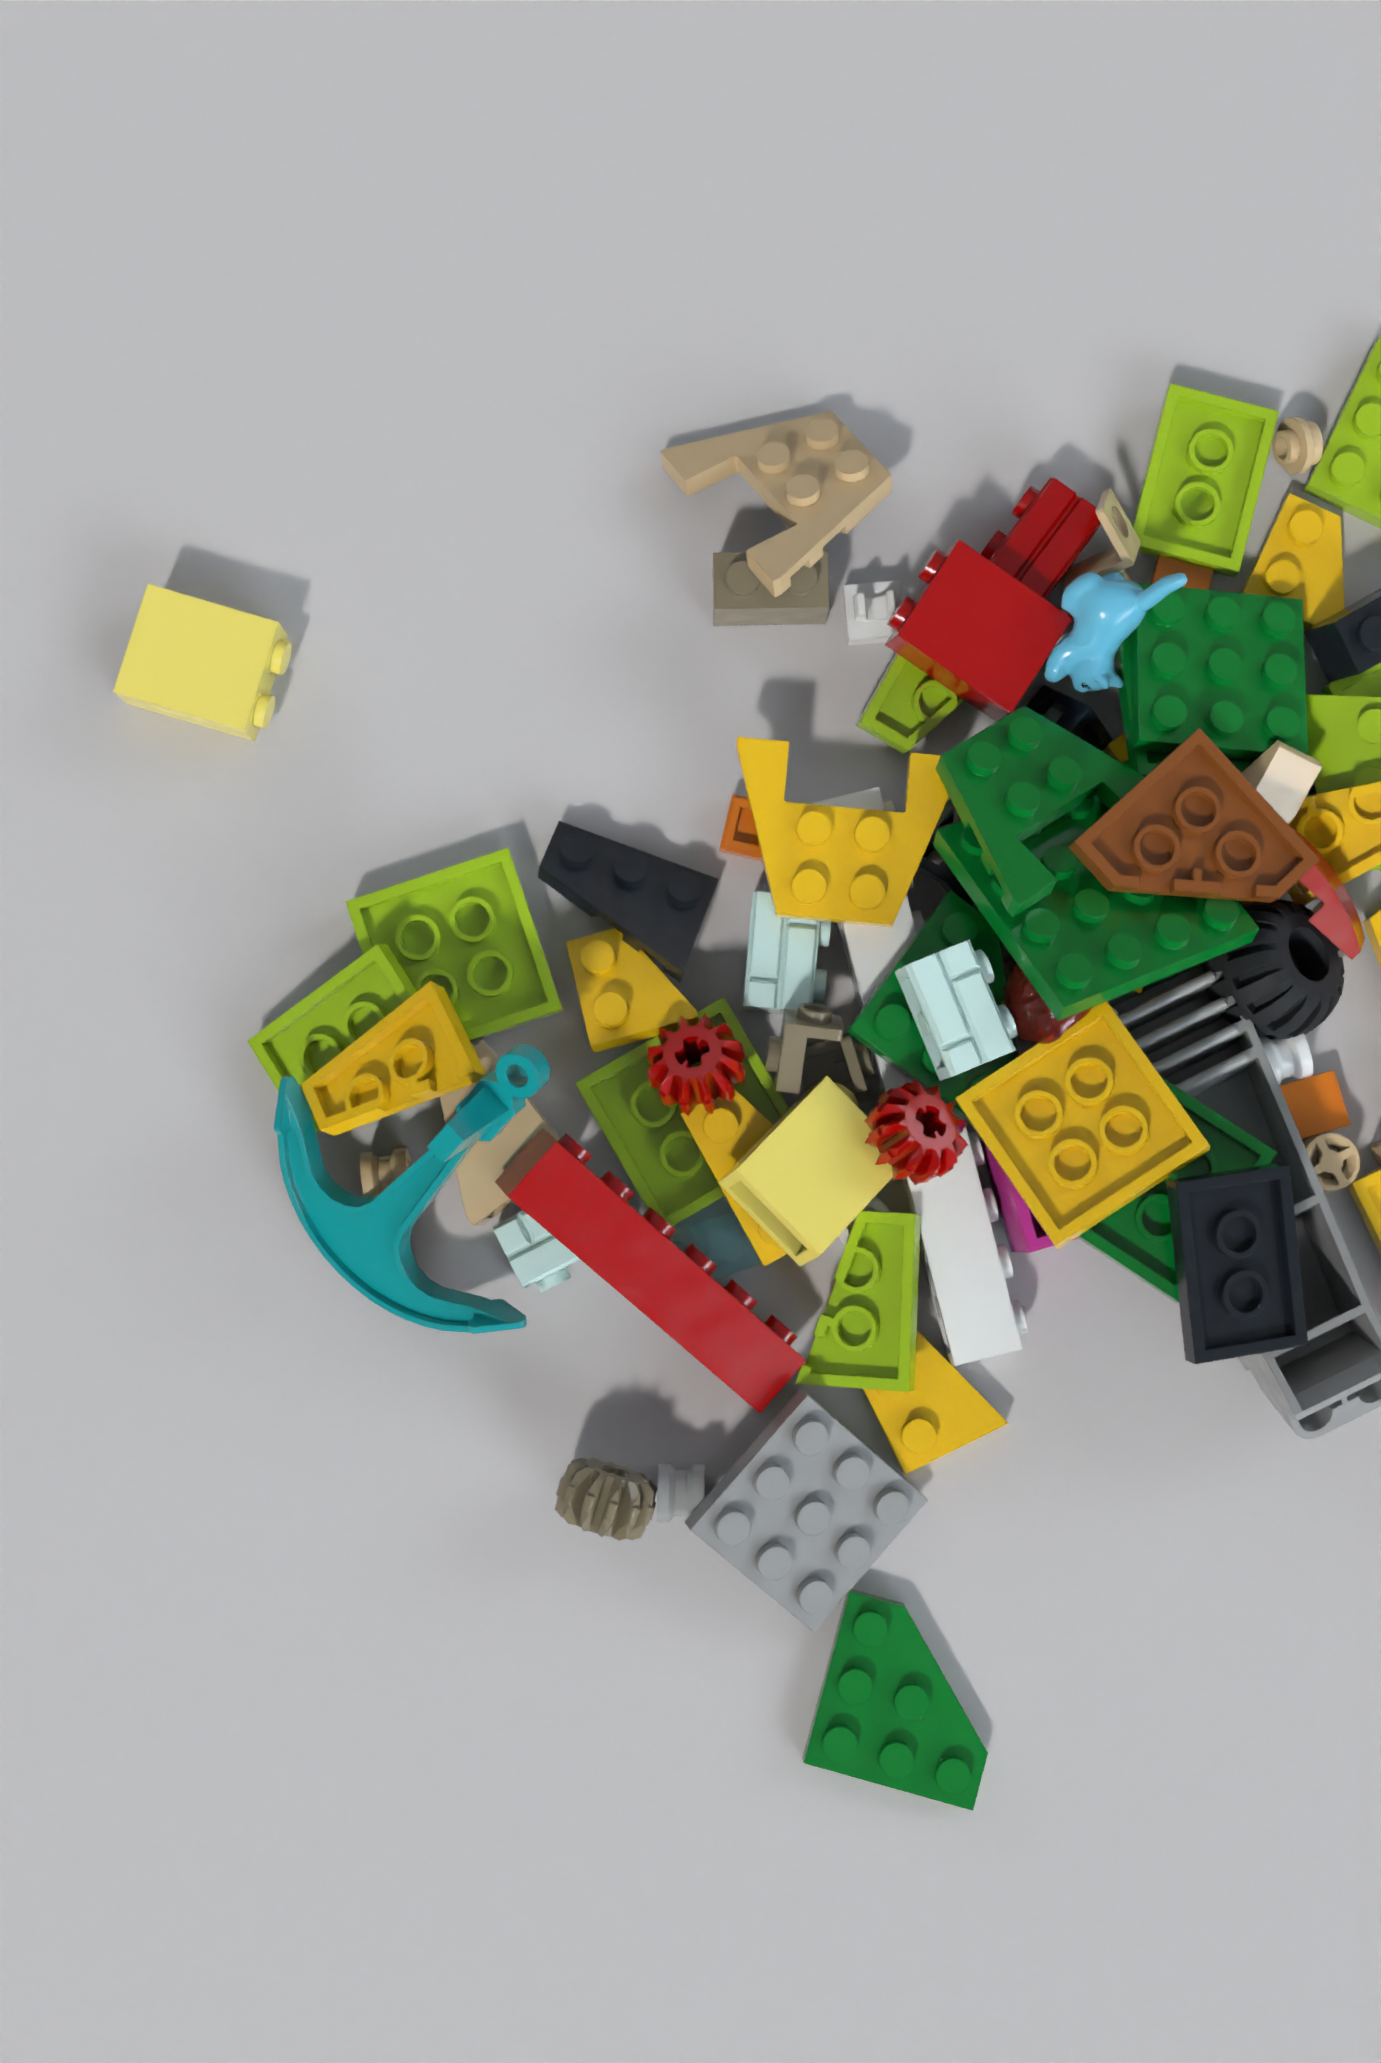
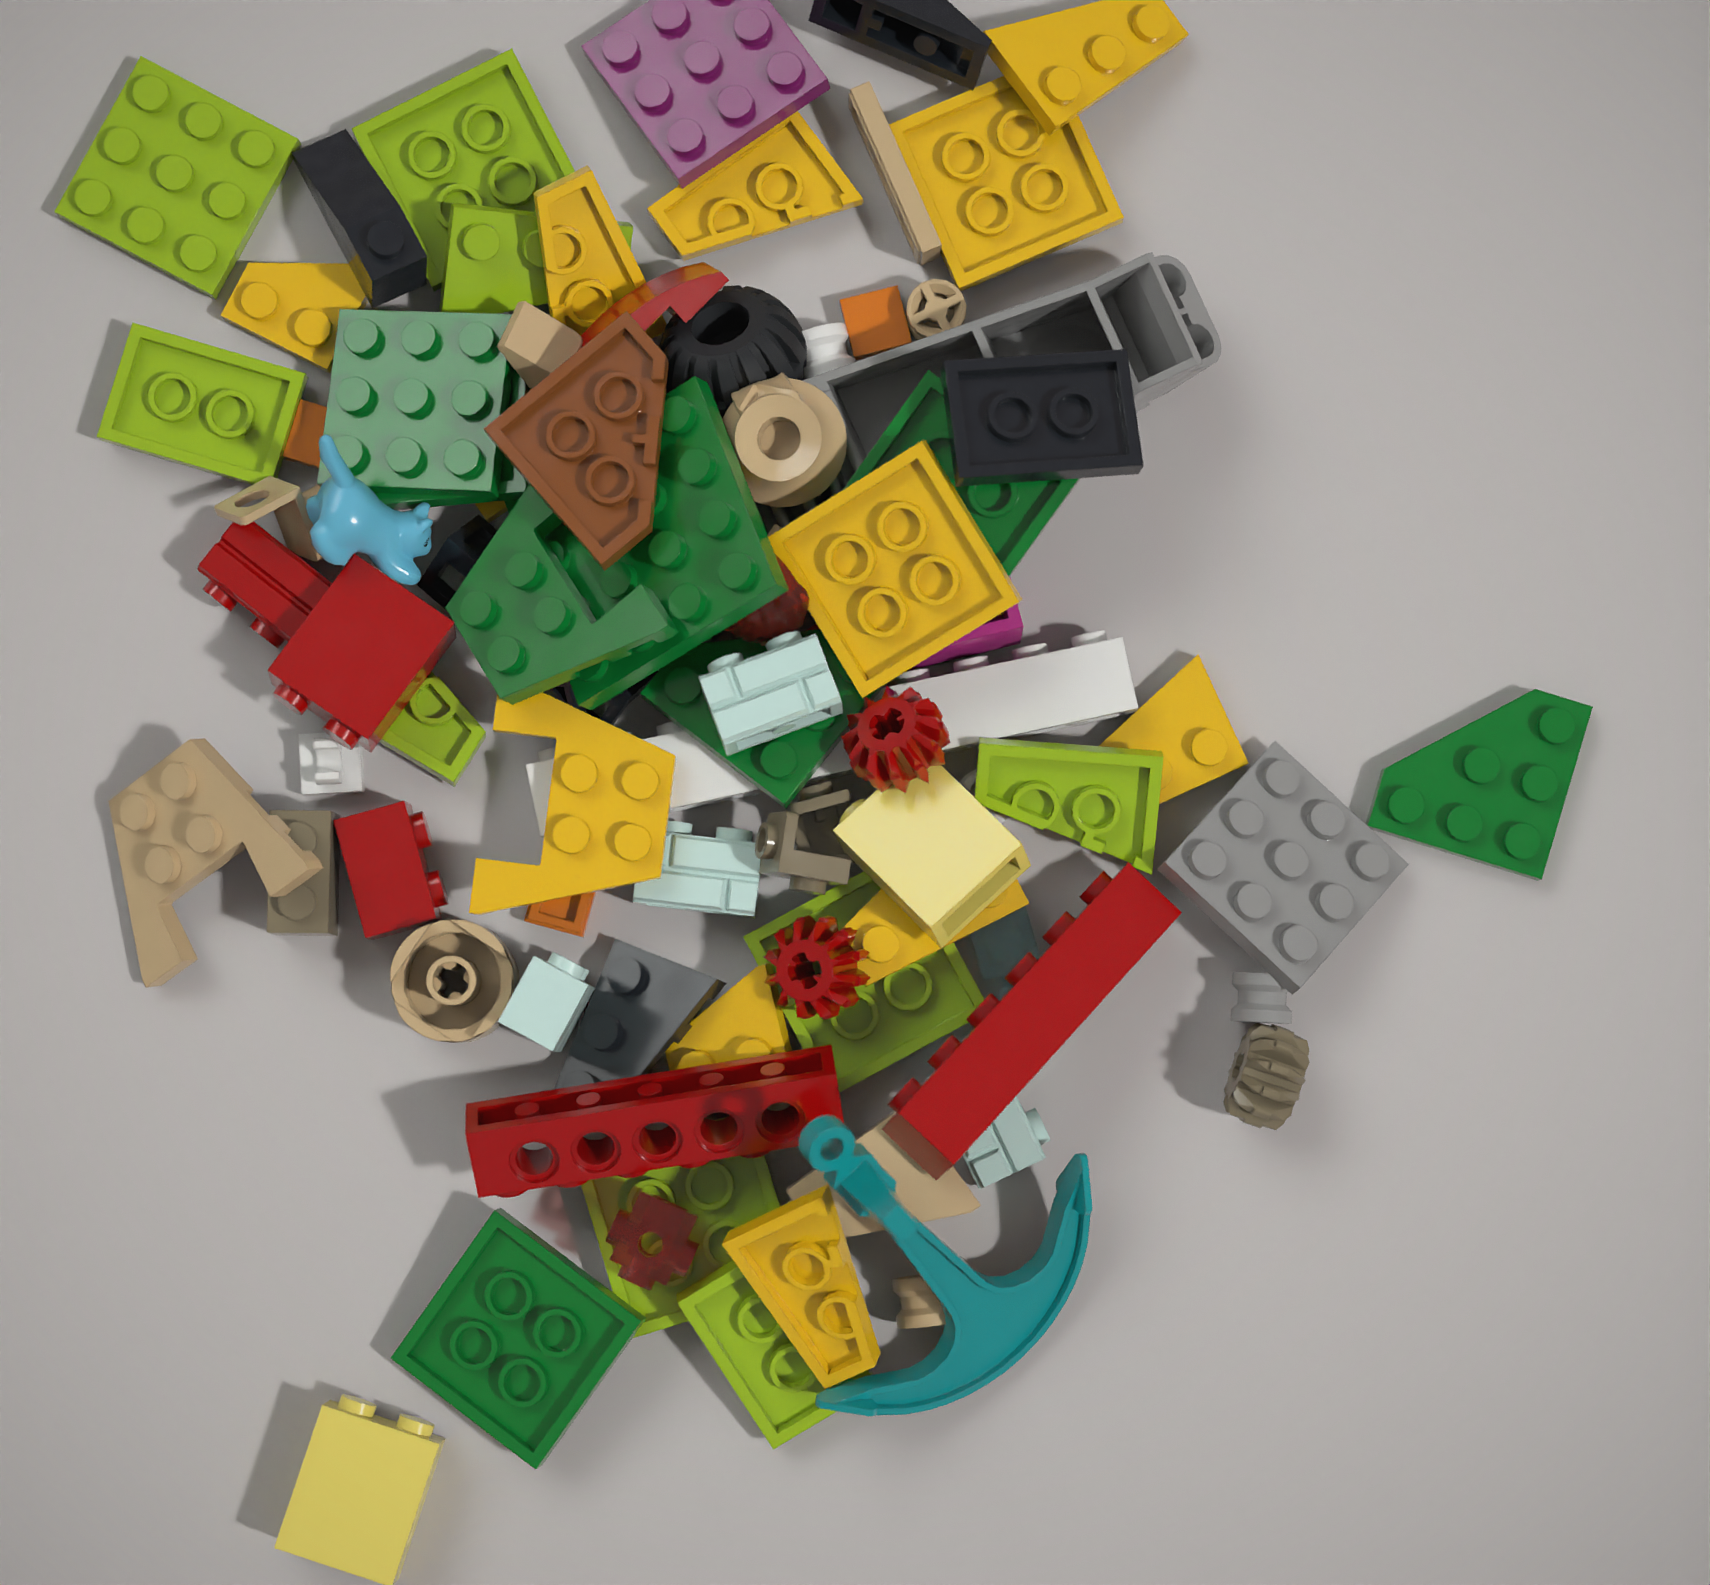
camera: 90 degrees left, 0 degrees up
(344, 801) = (518, 1338): none -> green plate
(452, 932) = (667, 1220): none -> clear red brick
(558, 886) = (626, 1105): none -> red brick
(656, 815) = (548, 1001): none -> light aqua brick
(664, 698) = (420, 989): none -> tan brick
(776, 668) = (390, 869): none -> red brick
(1200, 1018) = (786, 440): none -> tan piece
(1297, 445) = (169, 304): tan plate -> none

